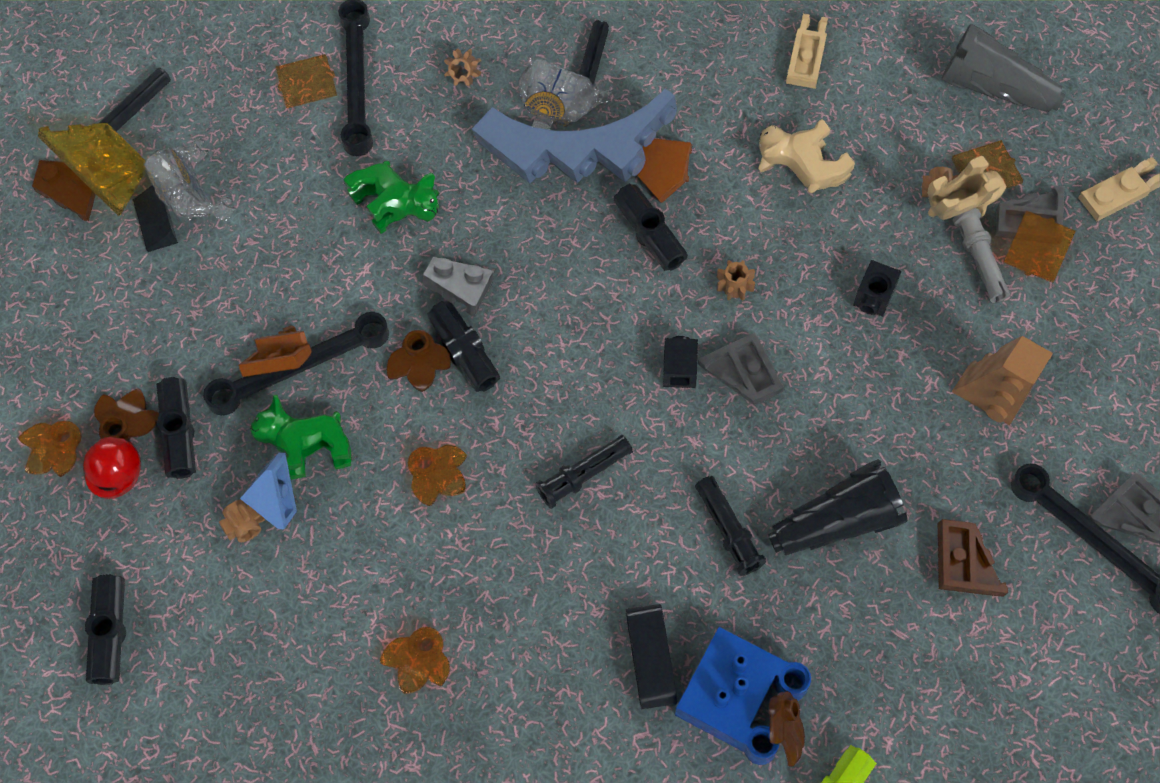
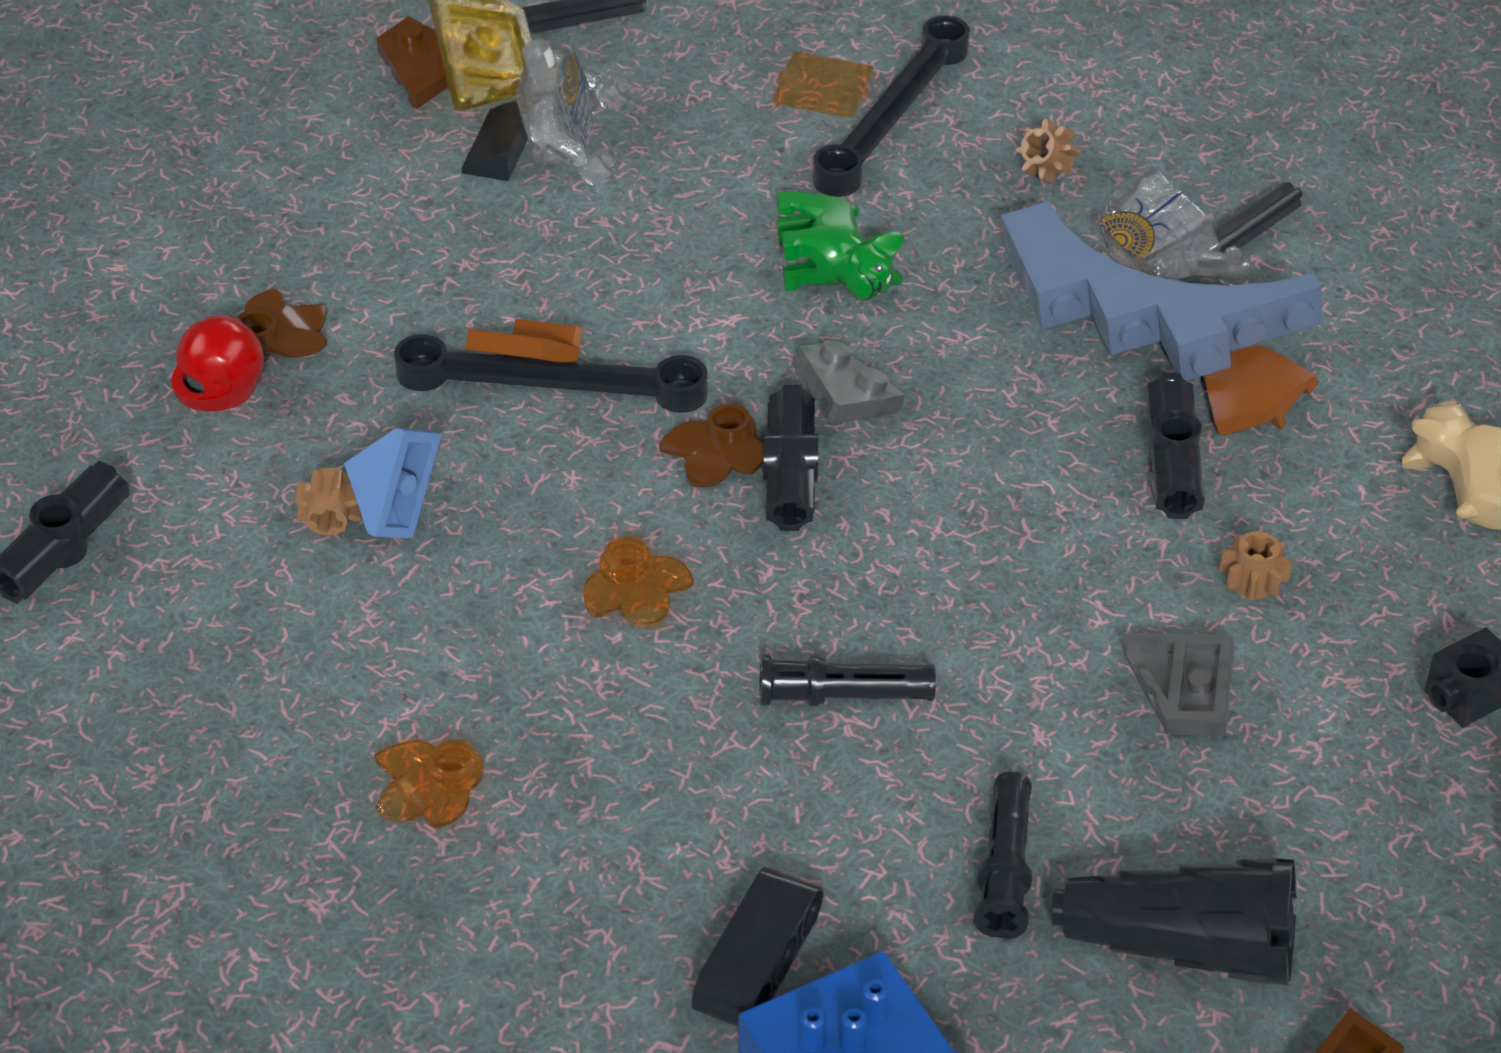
camera: 30 degrees right, 20 degrees down
(48, 450) = (163, 313): clear orange plate -> none
(178, 444) = (333, 364): black piece -> none
(301, 437) = (485, 452): green animal -> none
(680, 362) = (1089, 622): black brick -> none

